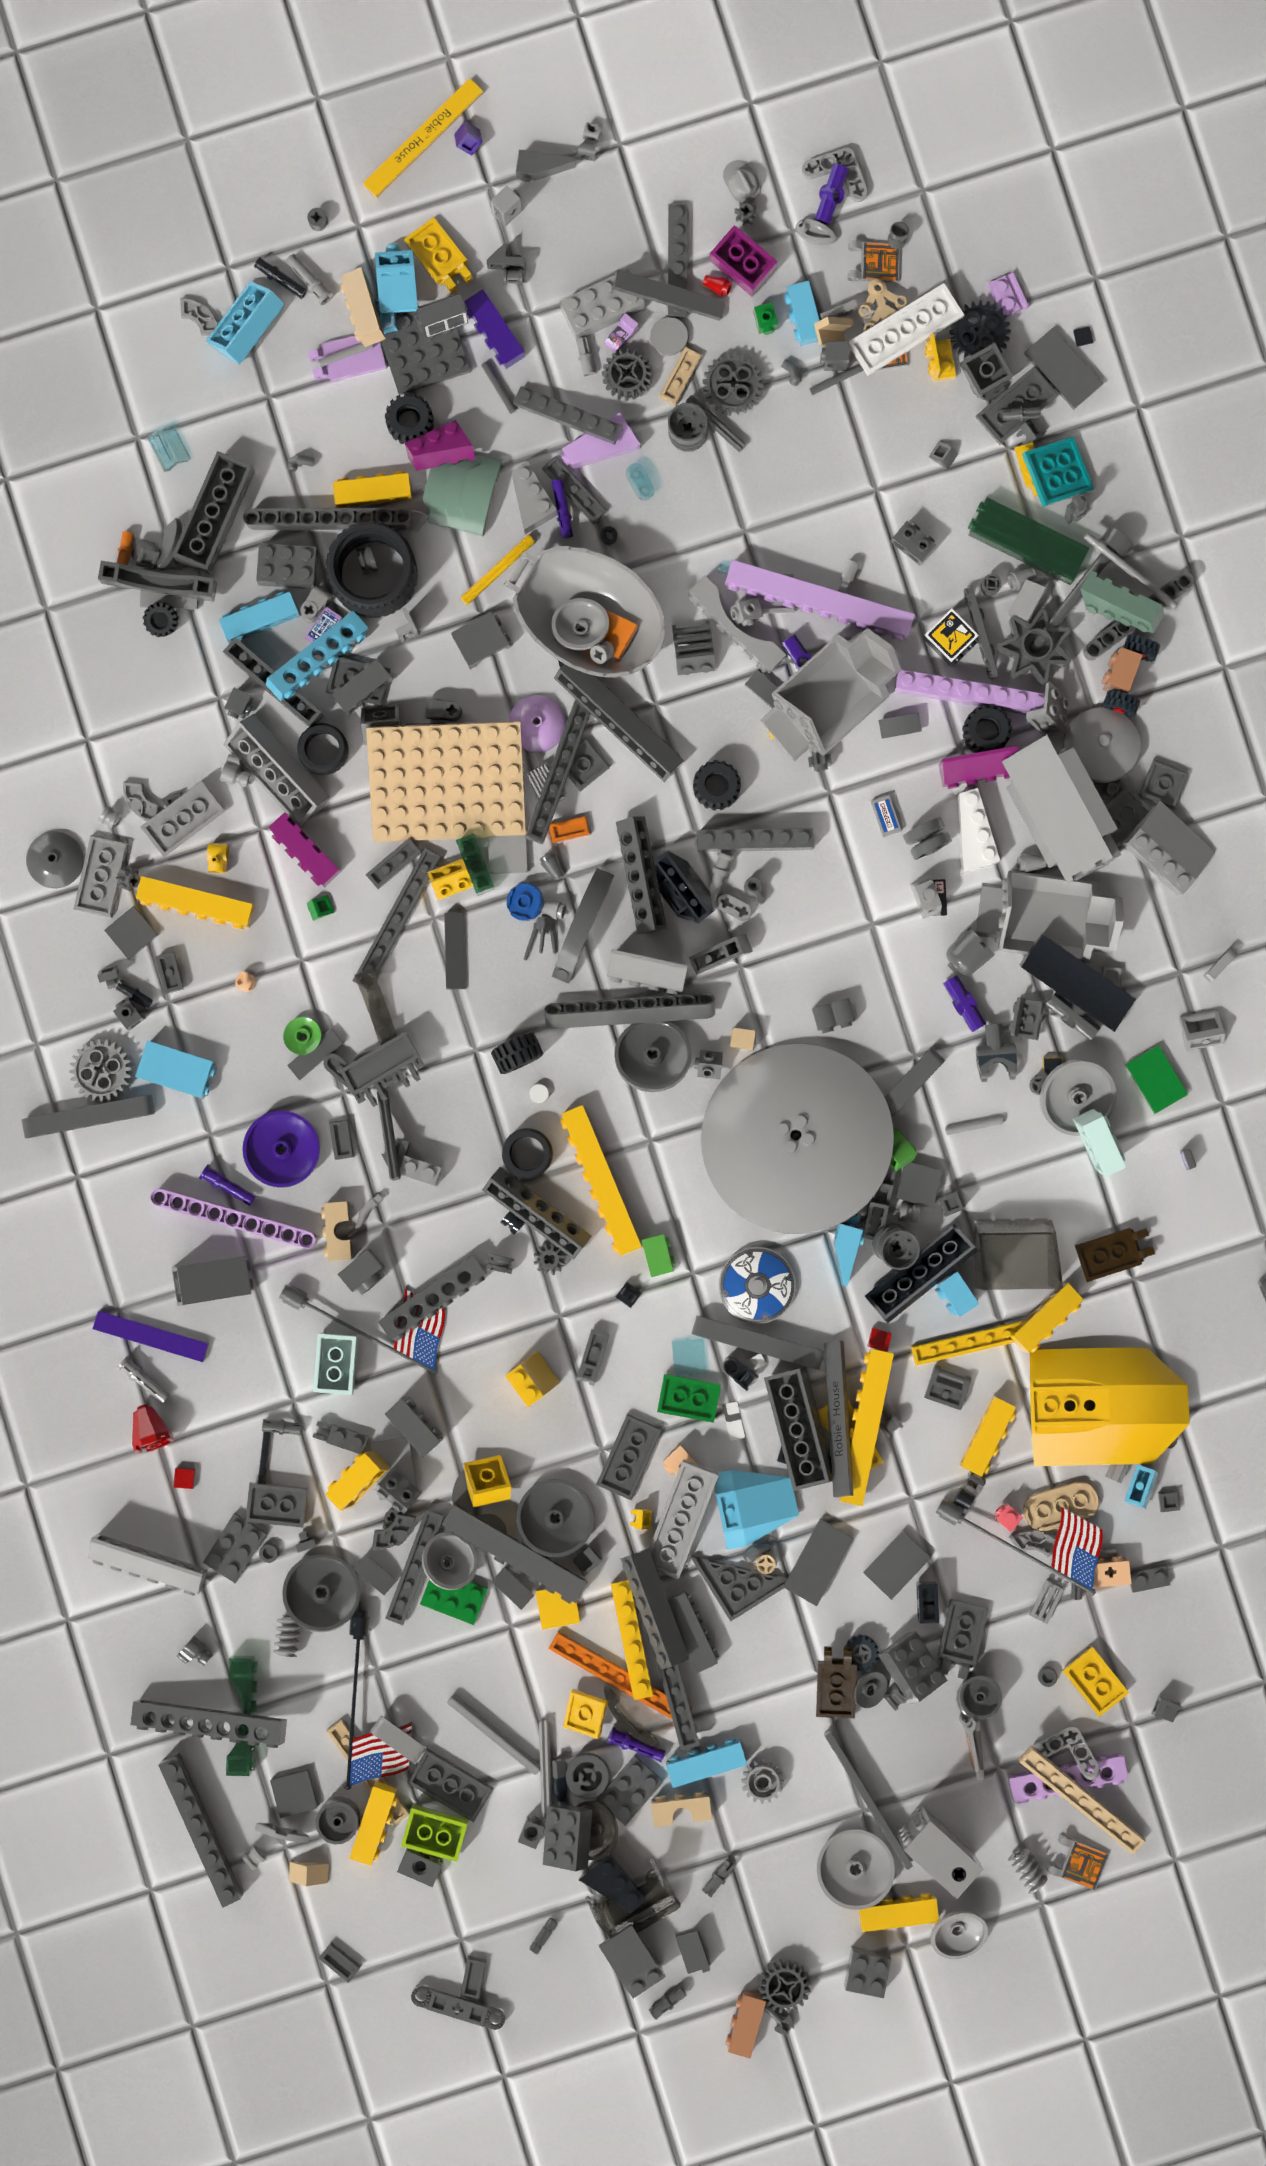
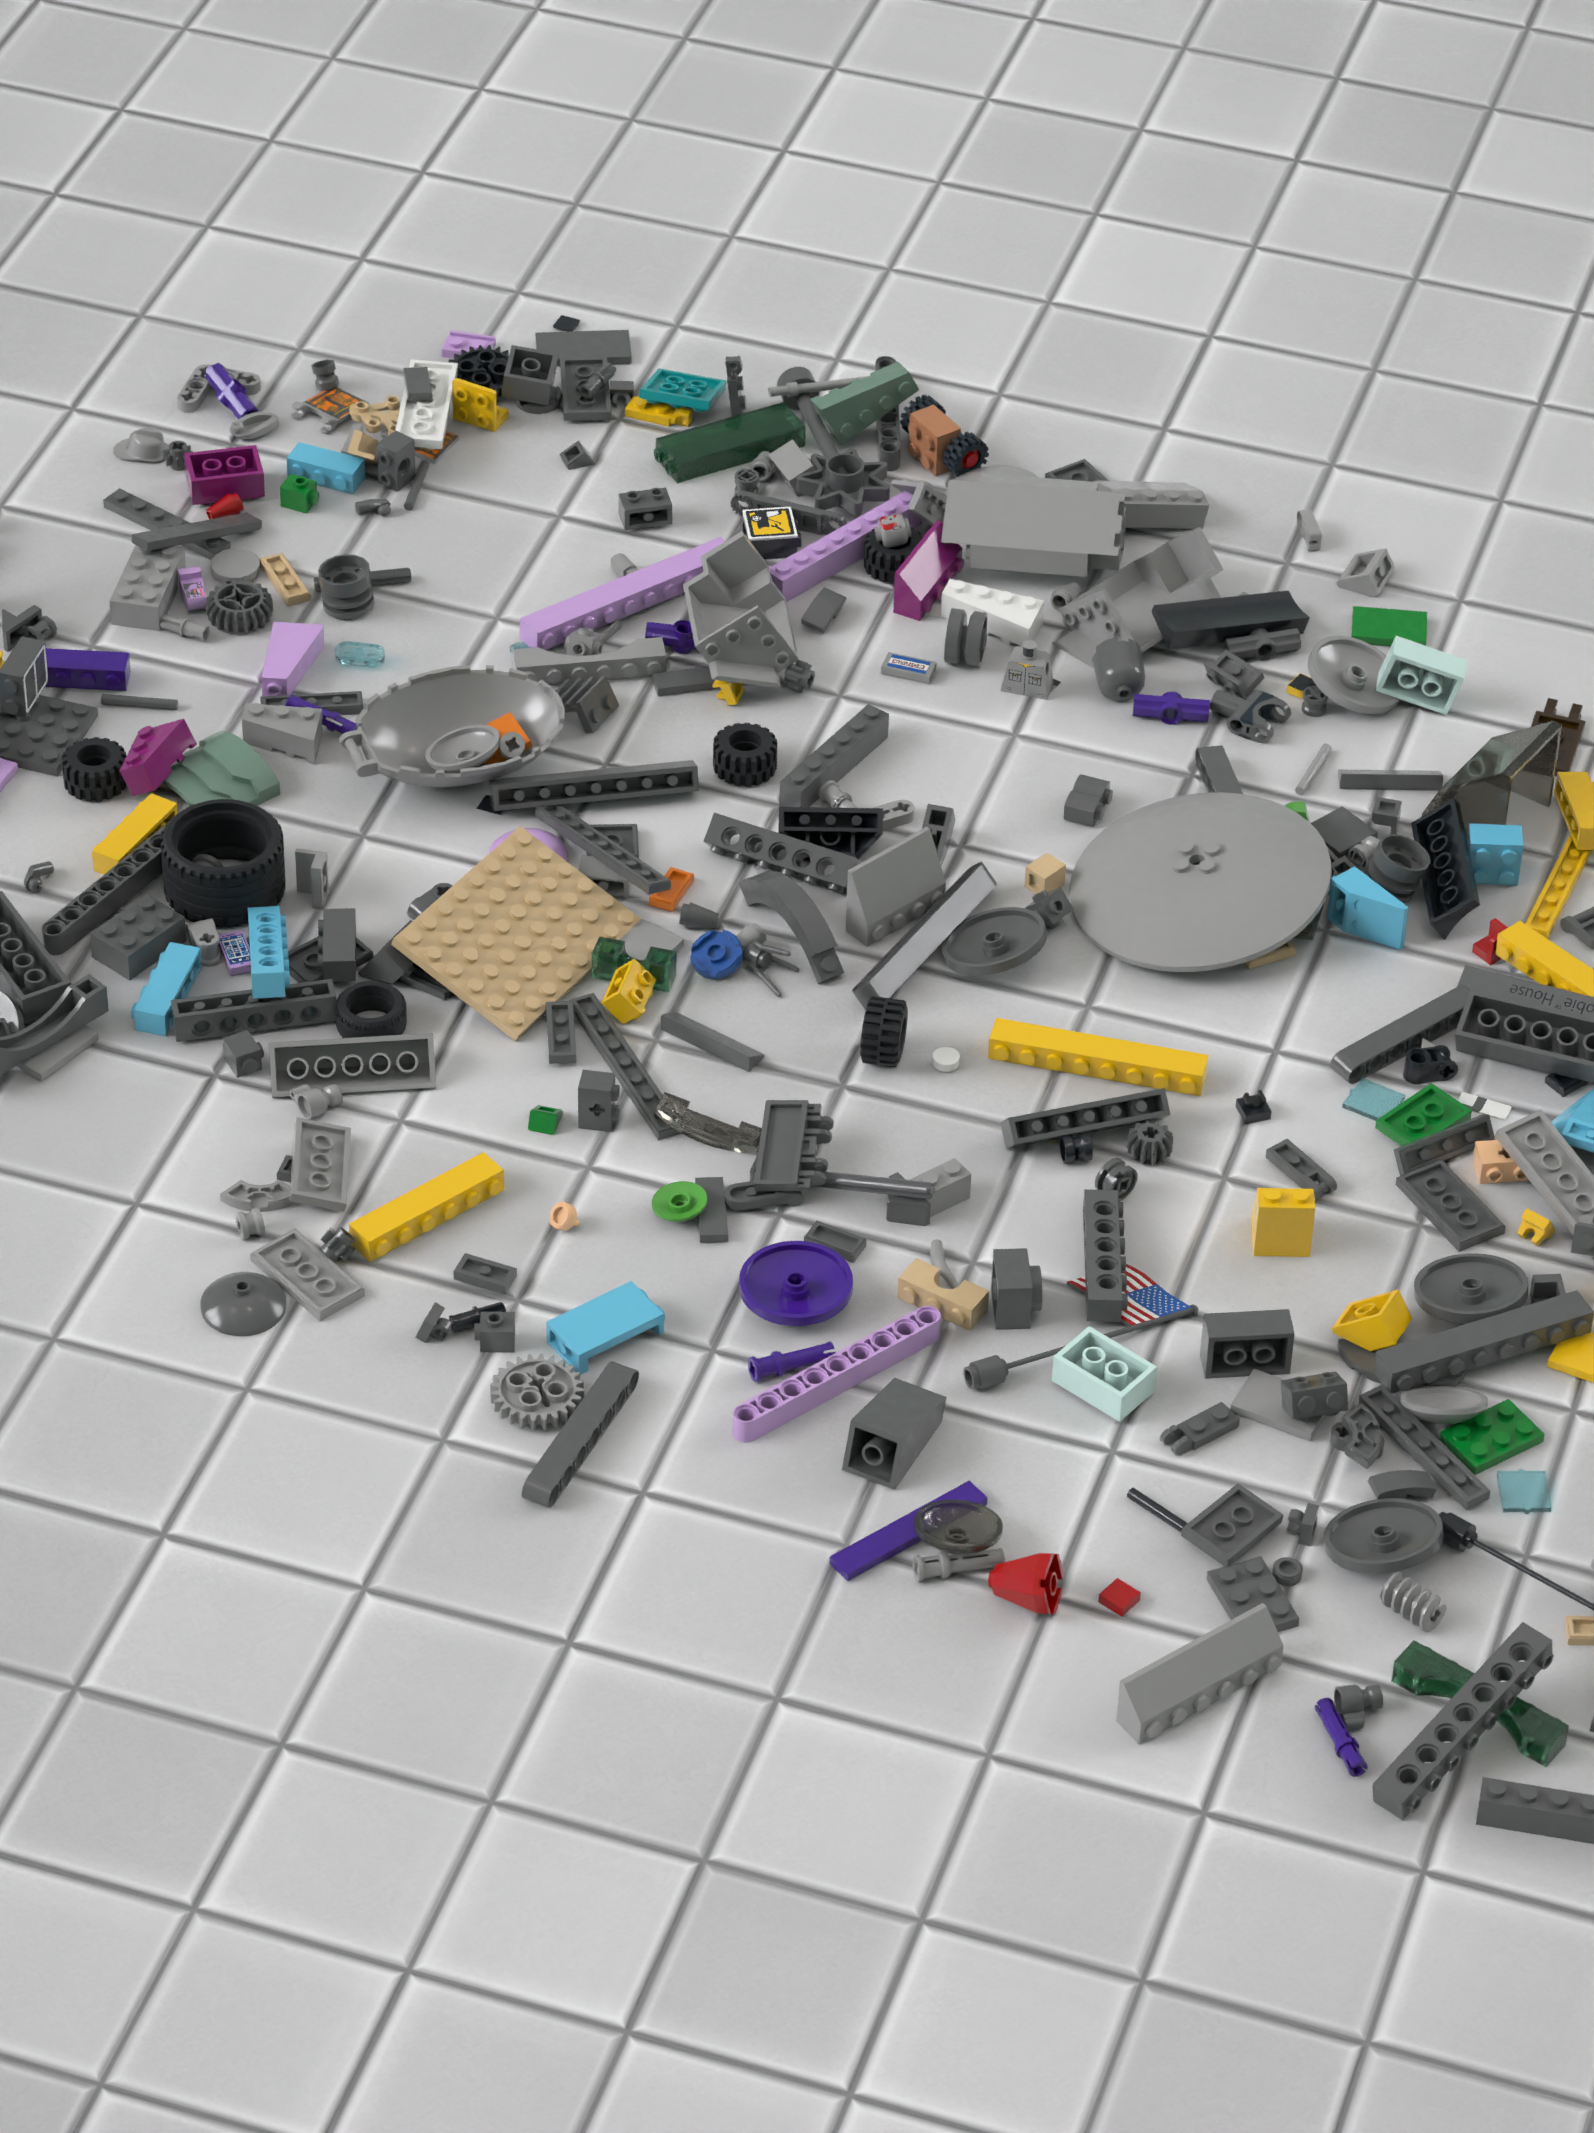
camera: 60 degrees left, 45 degrees down
(131, 932) = (401, 1284): dark grey tile -> none
(149, 619) = (74, 1073): black tyre -> none
(161, 1664) = (1345, 1745): none -> dark purple pin
(167, 1358) = (958, 1526): none -> clear smoke dish
(217, 857) = (397, 1161): yellow piece -> none
(281, 1427) = (1137, 1471): dark grey pin -> none
(304, 849) = (465, 1085): magenta wedge -> none
(341, 934) = (597, 1100): none -> dark grey brick
(356, 1480) = (1268, 1420): yellow brick -> none
(425, 1638) = (1524, 1491): none -> clear light blue piece
(481, 639) = (390, 842): dark grey panel -> none
(497, 569) = (329, 797): yellow axle -> none
(510, 1141) = (1011, 1077): black tyre -> none
(512, 1588) = (1522, 1374): dark grey slope -> none
(567, 415) = (231, 658): dark grey plate -> none
(658, 1256) = (1231, 1057): bright green brick -> none
(673, 1425) = (1444, 1144): none -> dark grey tile
(731, 400) = (336, 539): dark grey gear -> none
(753, 888) = (885, 788): dark grey piece -> none
(757, 1285) = (1338, 1006): dish -> none
(915, 311) = (417, 384): none -> dark grey tile
(988, 724) = (893, 530): none -> light grey head
(1000, 1177) = (1390, 779): none -> dark grey slope
(1188, 1159) = (1498, 642): dark grey tile -> none

